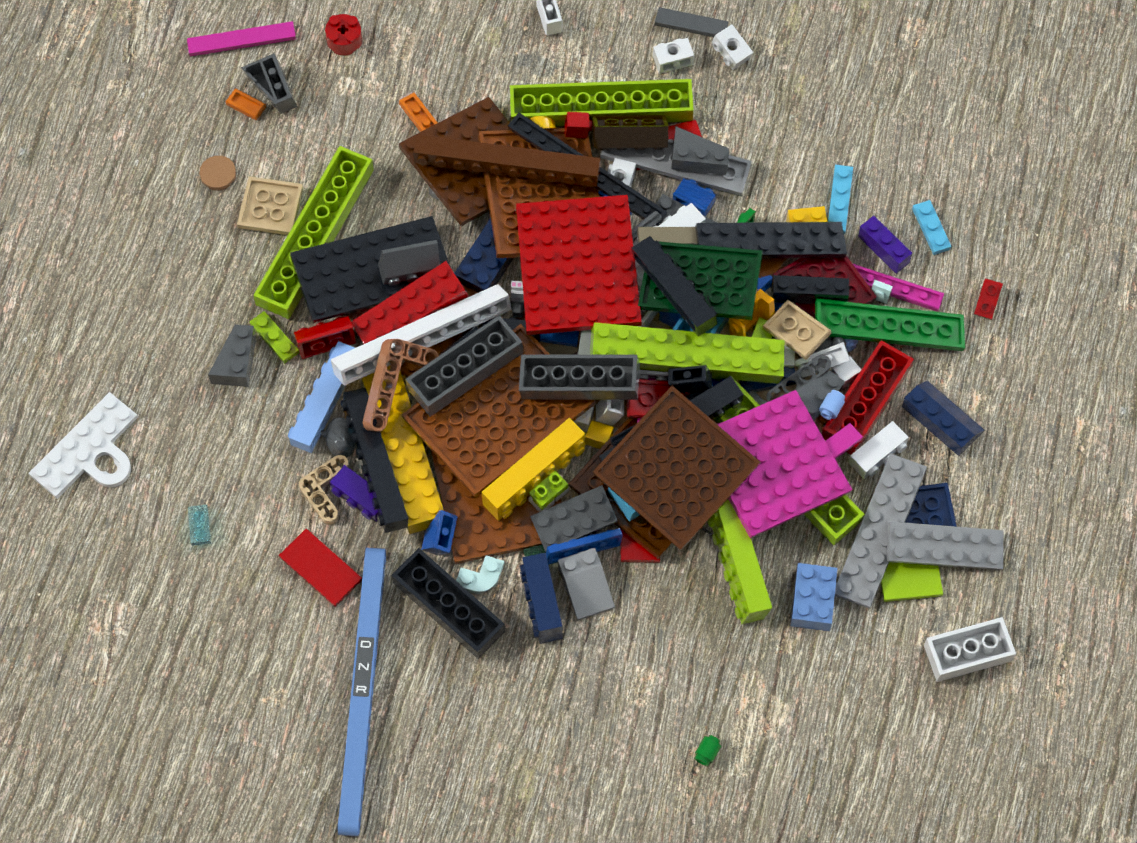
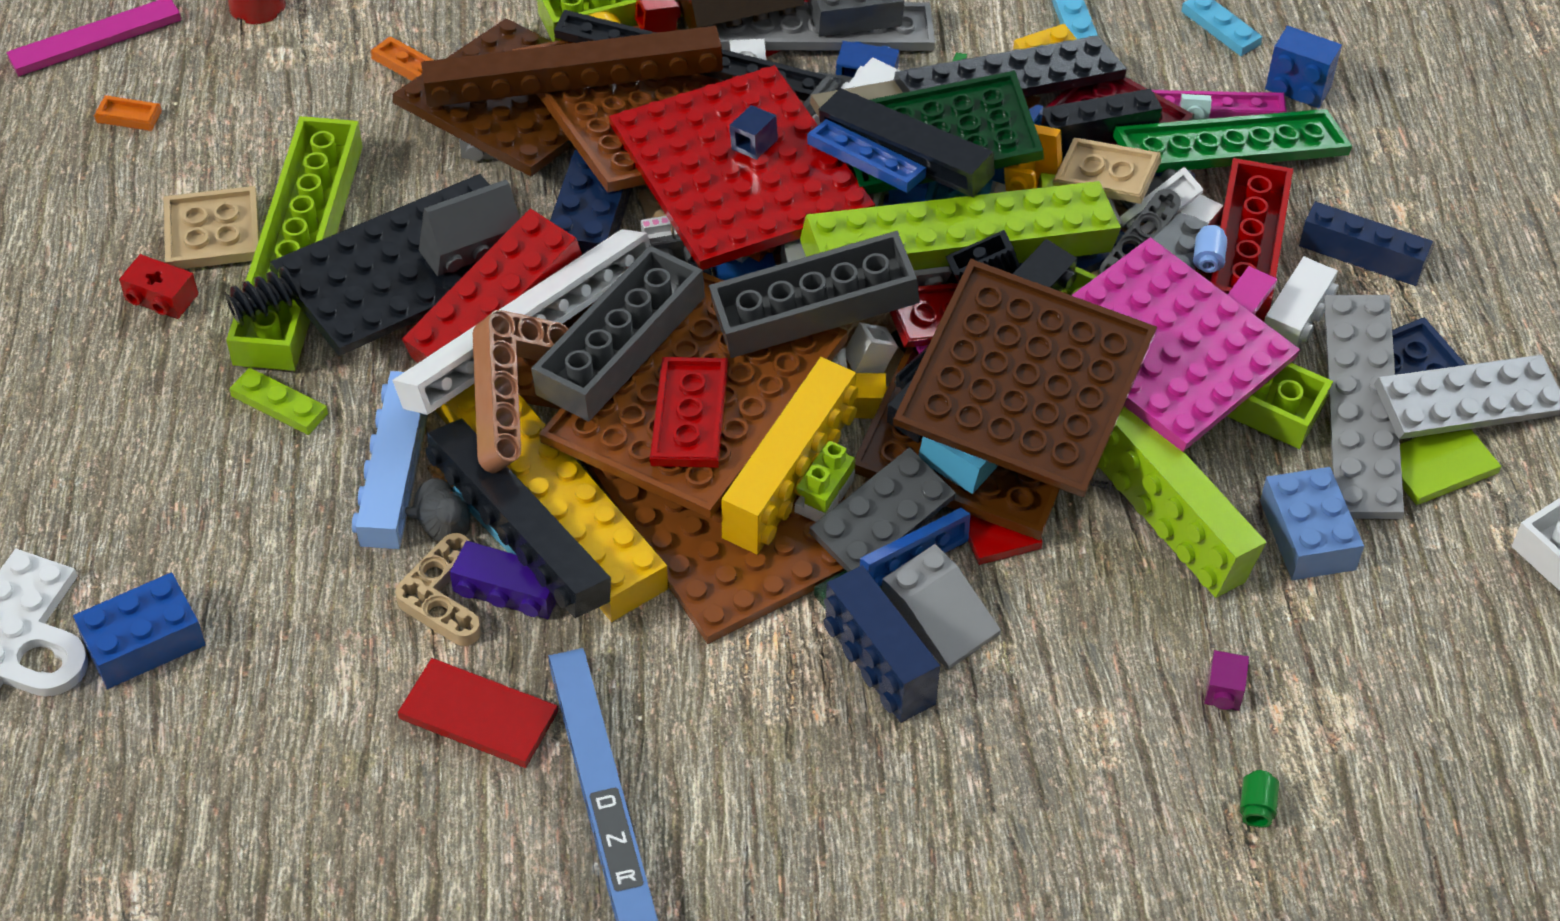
camera: 20 degrees left, 15 degrees down
(159, 464) = (139, 630): none -> blue brick
(199, 525) = (239, 705): clear light blue plate -> none
(217, 172) = (110, 207): medium nougat tile -> none
(228, 240) = (158, 286): none -> red brick
(235, 358) = (221, 444): dark grey wedge -> none
(271, 82) = (161, 71): dark grey wedge -> none
(279, 275) = (261, 295): none -> black piece
(324, 336) = (361, 376): red slope -> none
(440, 533) = (668, 598): blue slope -> none
(448, 603) = (725, 698): black brick -> none
(483, 581) = (758, 658): light aqua plate -> none
(486, 428) = (689, 412): none -> red tile
(590, 249) = (753, 132): none -> dark blue brick
(647, 287) = (866, 155): none -> blue plate
(721, 677) = (1226, 680): none -> magenta brick
(884, 244) = (1170, 53): dark purple brick -> none
(960, 282) = (1303, 66): none -> blue brick
(988, 299) = (1350, 83): red plate -> none

